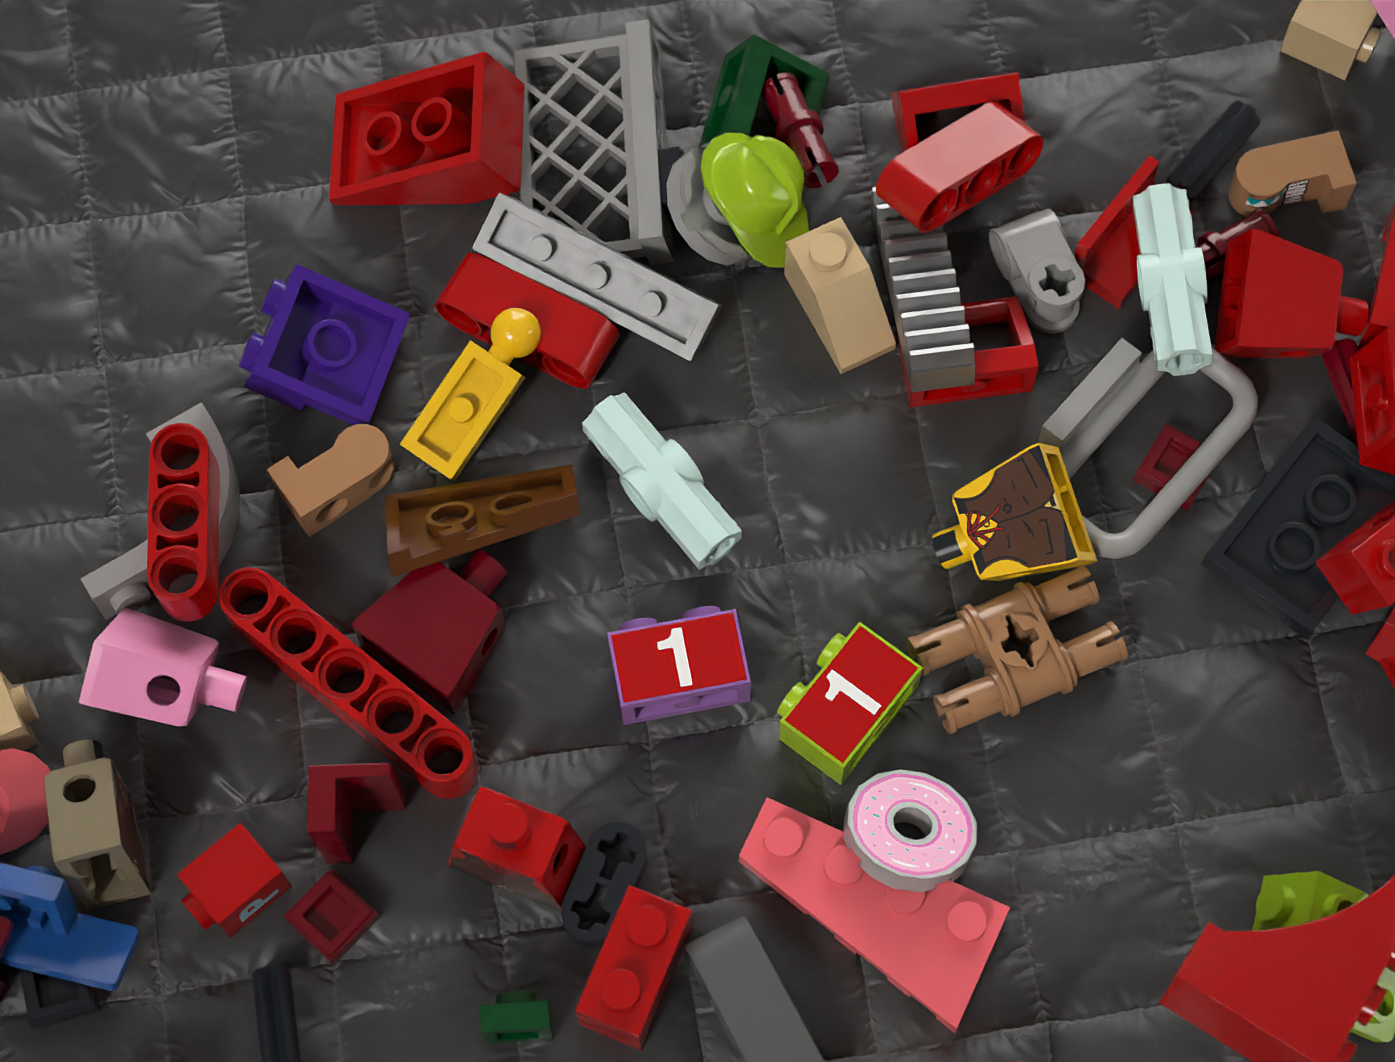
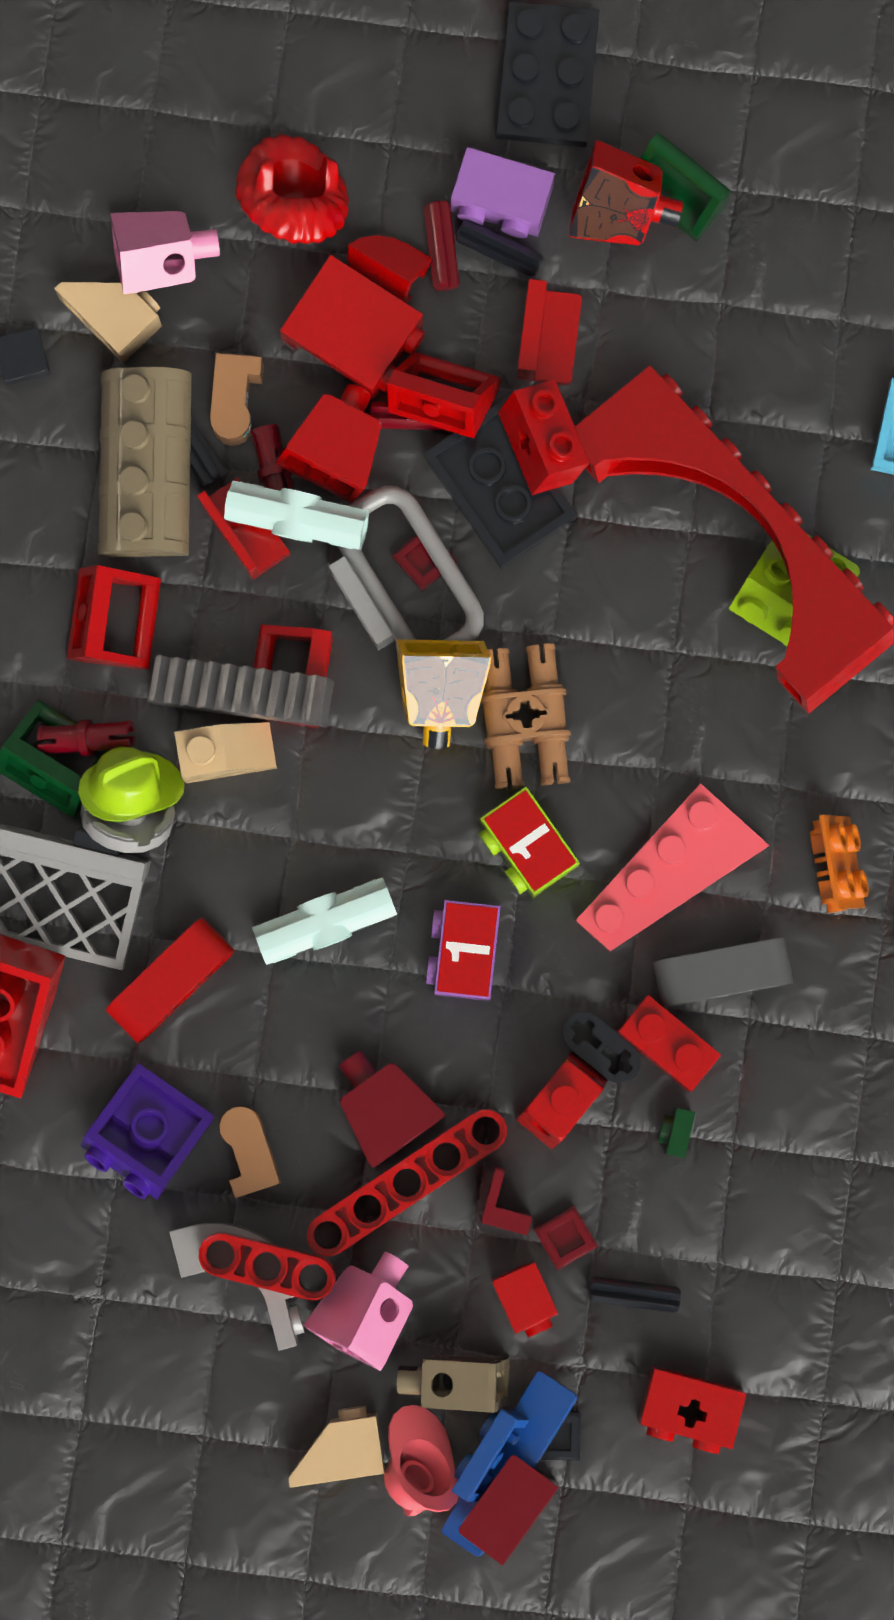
camera: 75 degrees left, 15 degrees up
(469, 515) = (312, 1061): reddish brown wing -> none
(473, 395) = (220, 1035): yellow plate -> none
(597, 276) = (157, 919): gear -> none
(916, 800) = (621, 808): tile -> none
(959, 166) = (160, 633): red beam -> none
(1040, 269) = (239, 603): light grey piece -> none
(1169, 97) = (144, 462): none -> dark tan container

